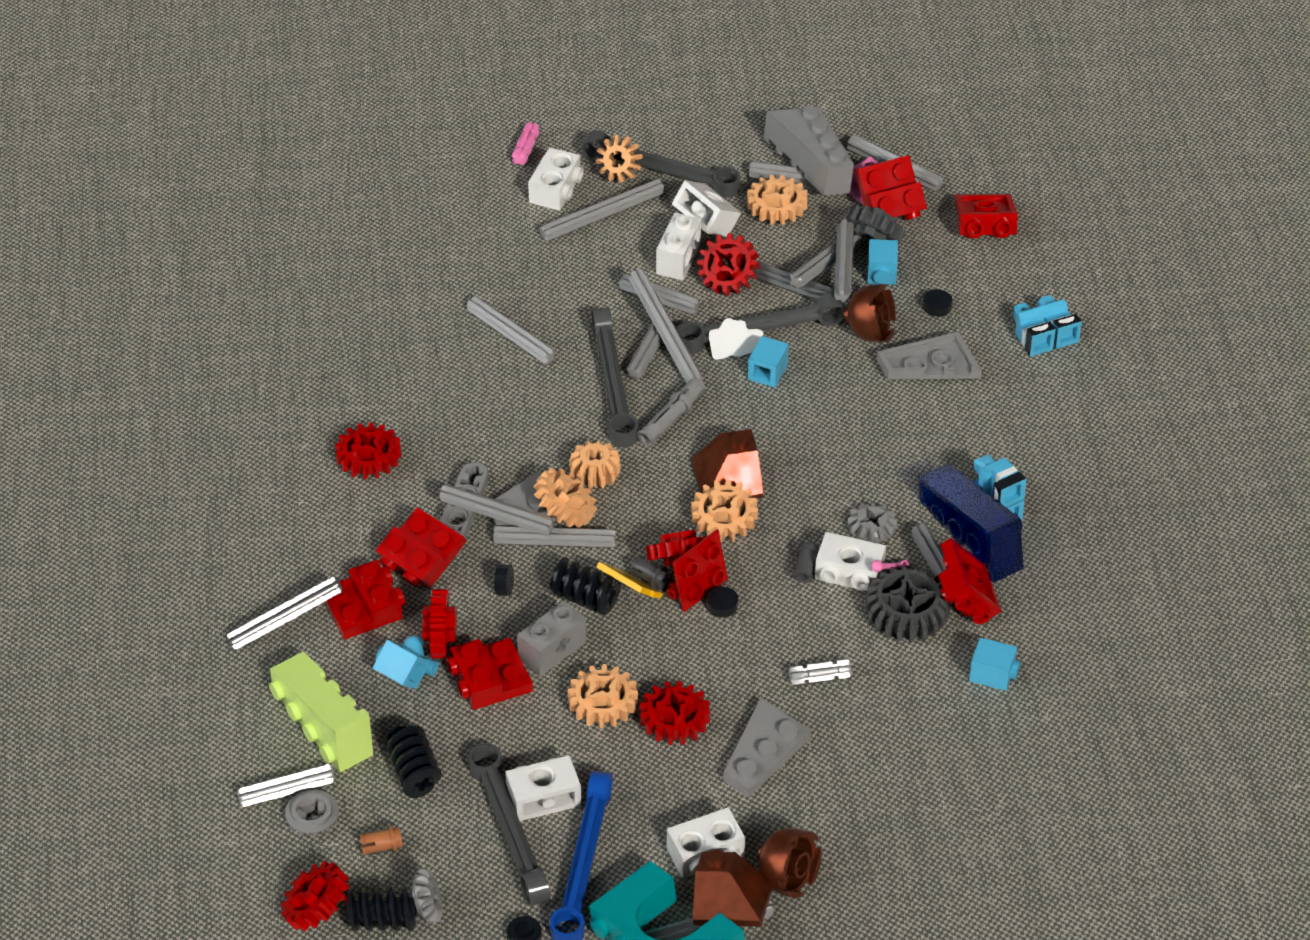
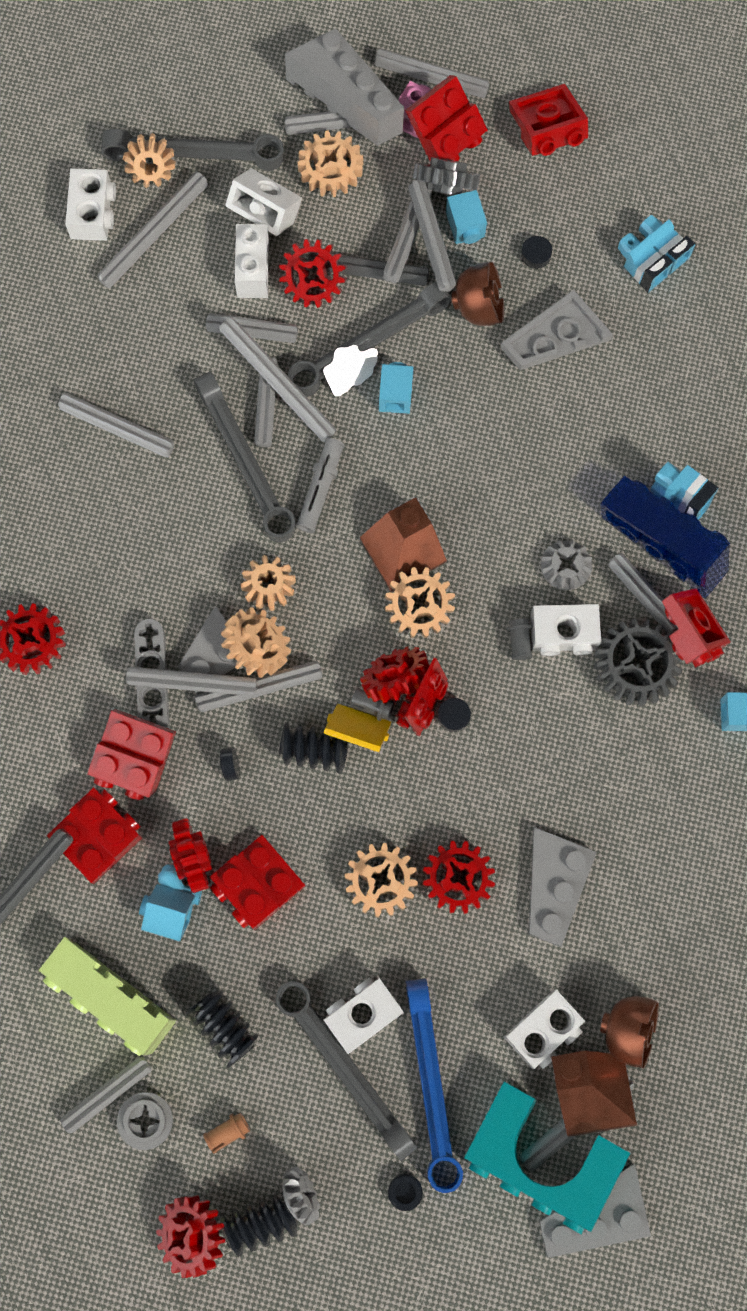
camera: 20 degrees left, 30 degrees up
(525, 143) = (39, 160): bright pink axle -> none
(551, 638) = (305, 826): light grey brick -> none
(820, 671) = (579, 772): axle -> none
(877, 565) = (602, 638): bright pink hinge -> none

